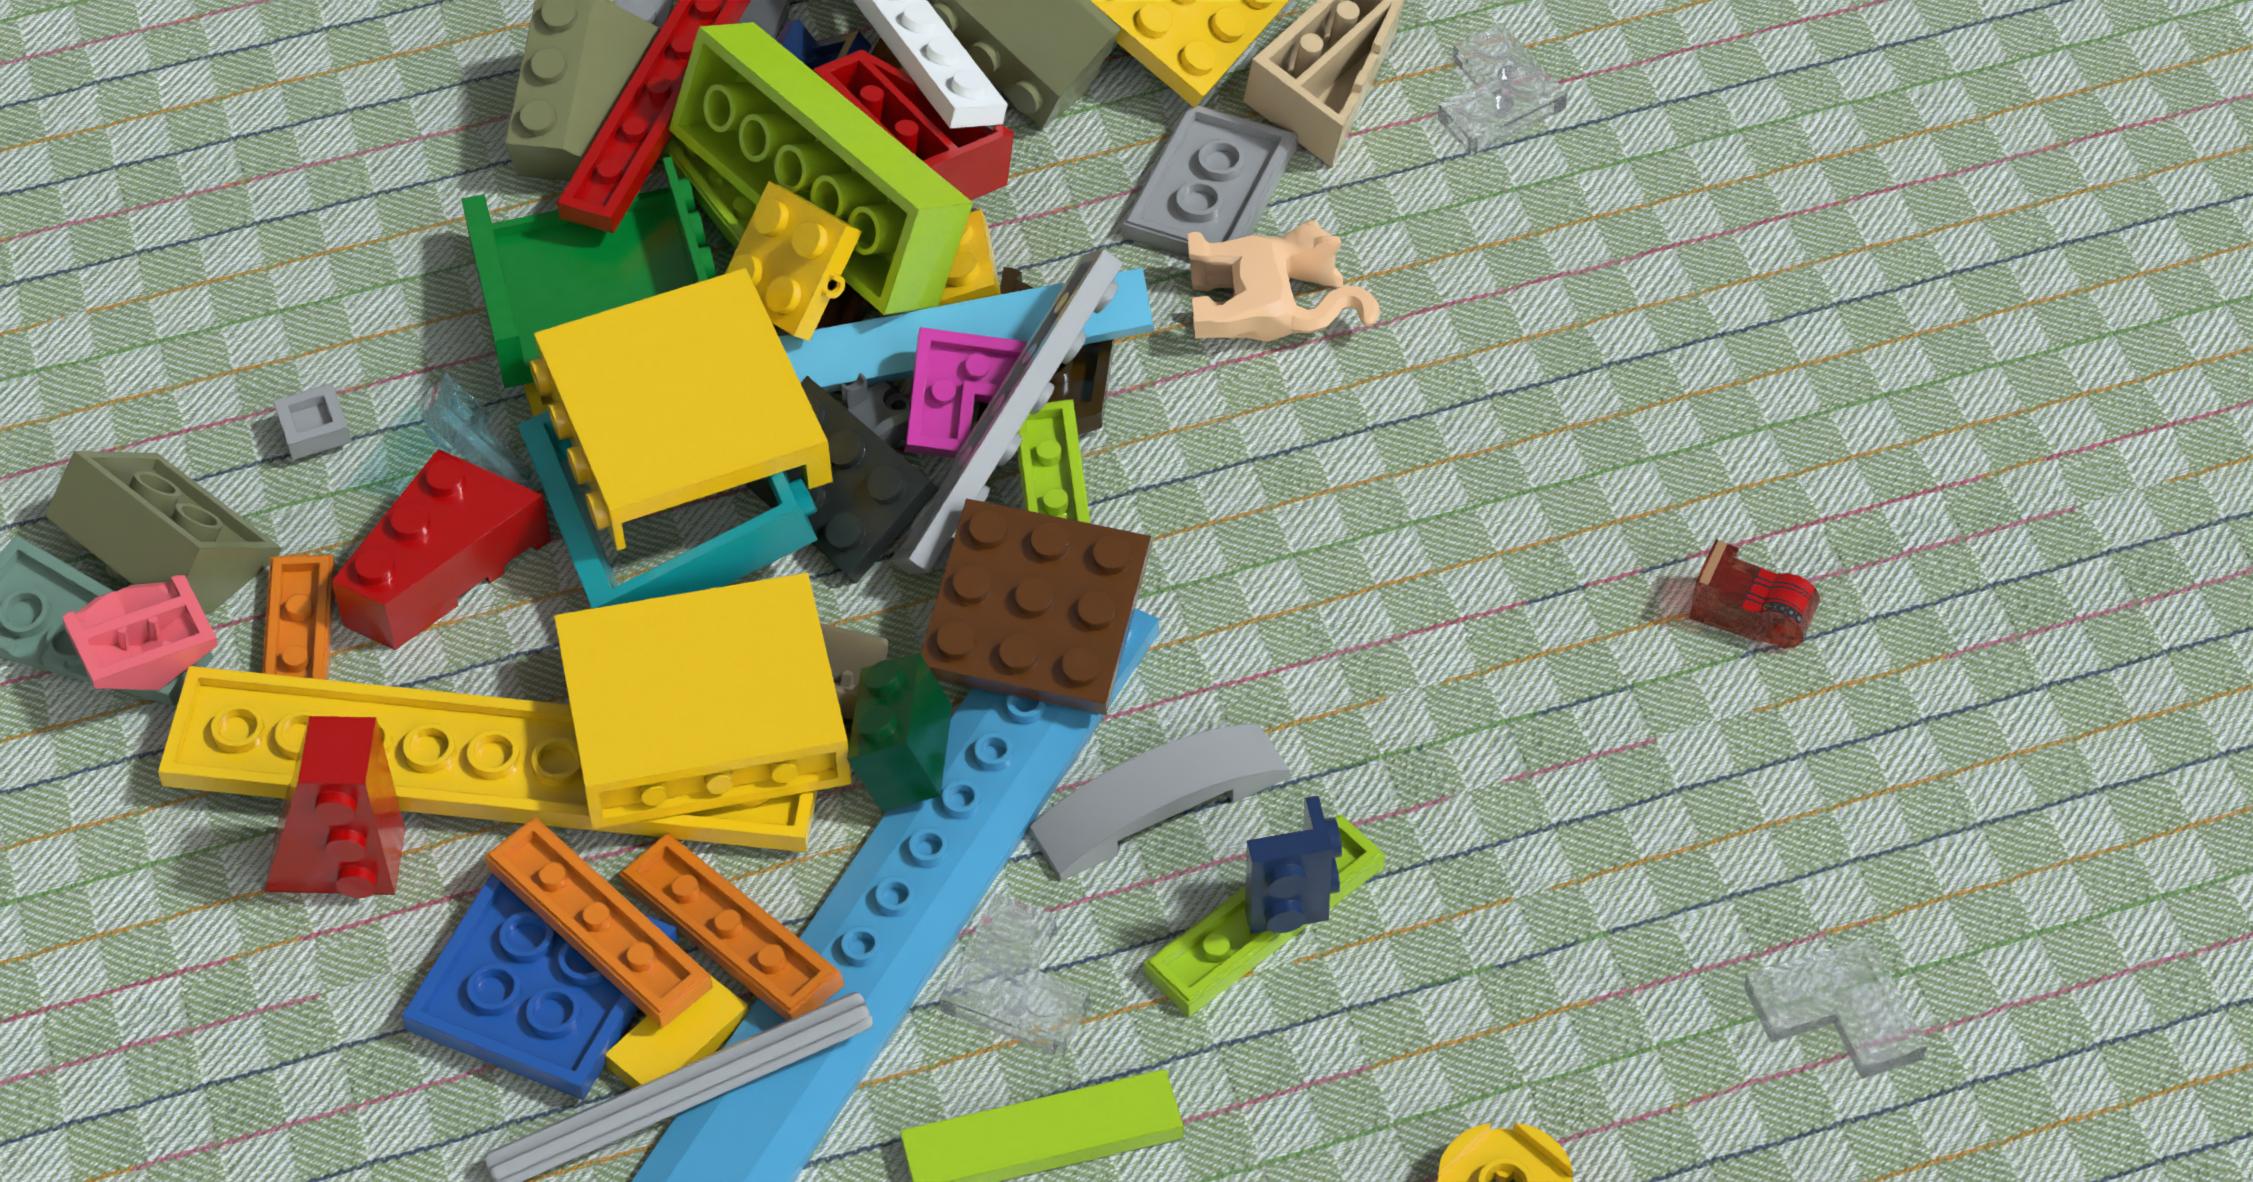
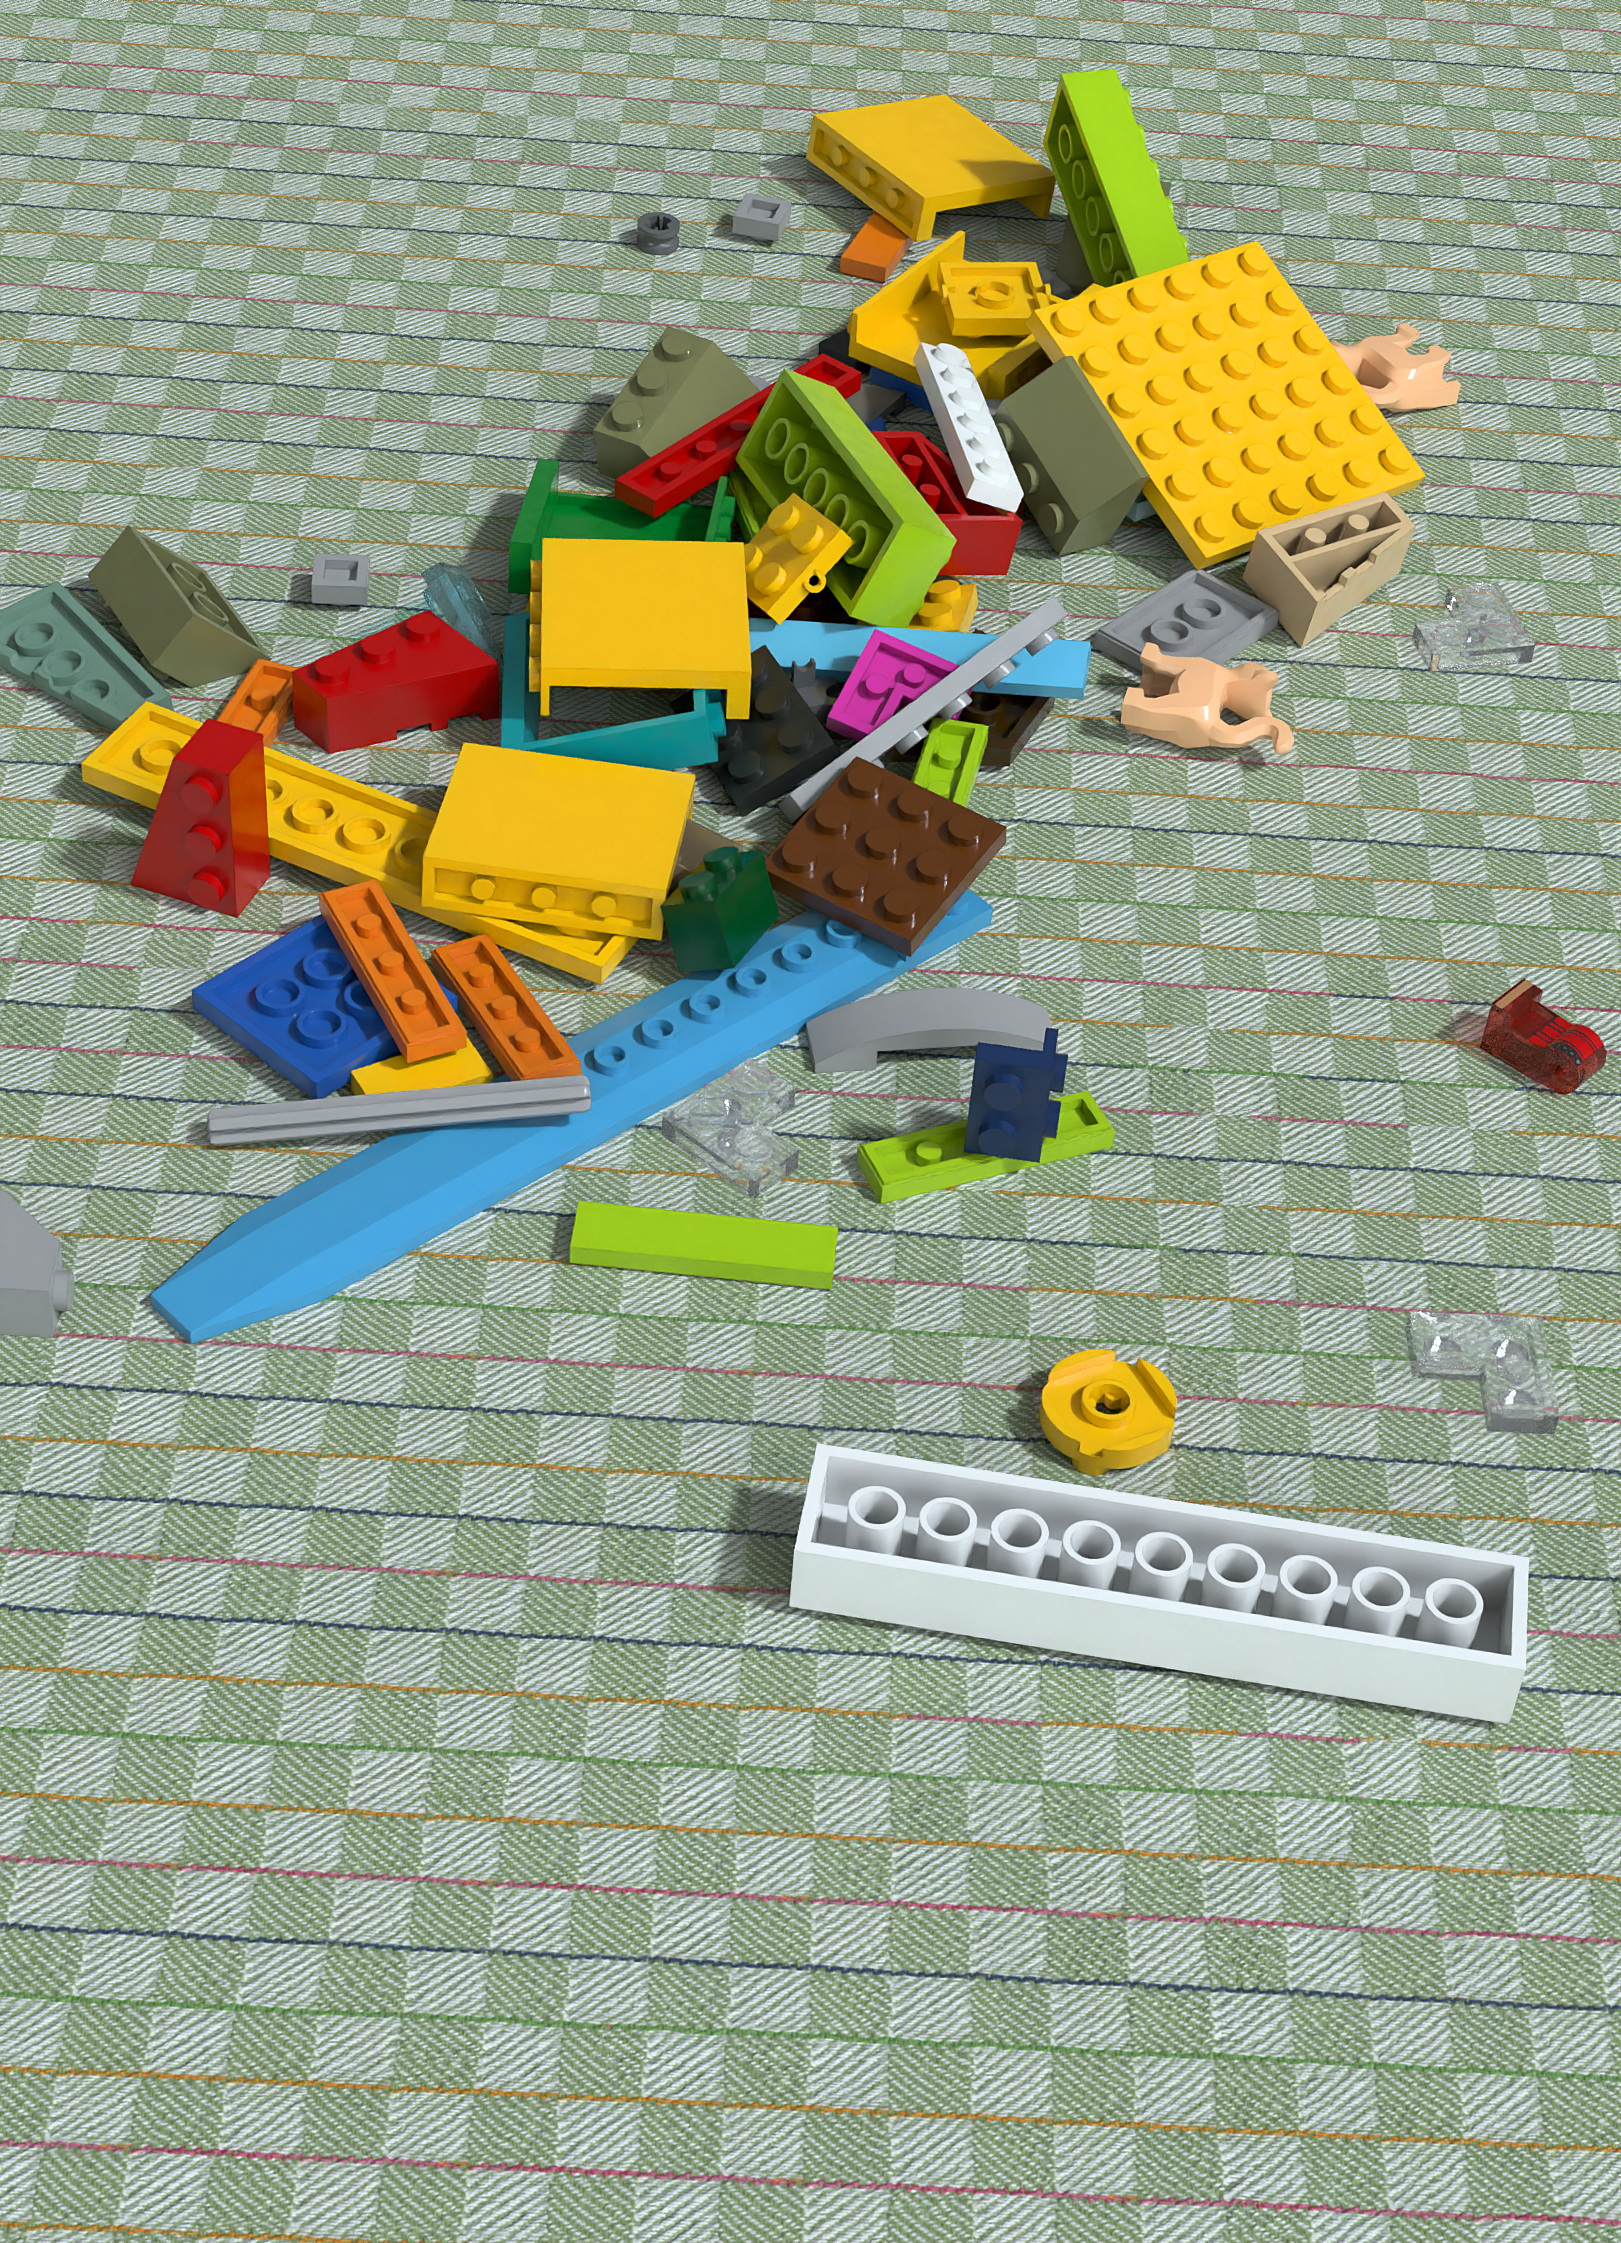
camera: 15 degrees right, 10 degrees down
(140, 635) = (116, 668): coral slope -> none

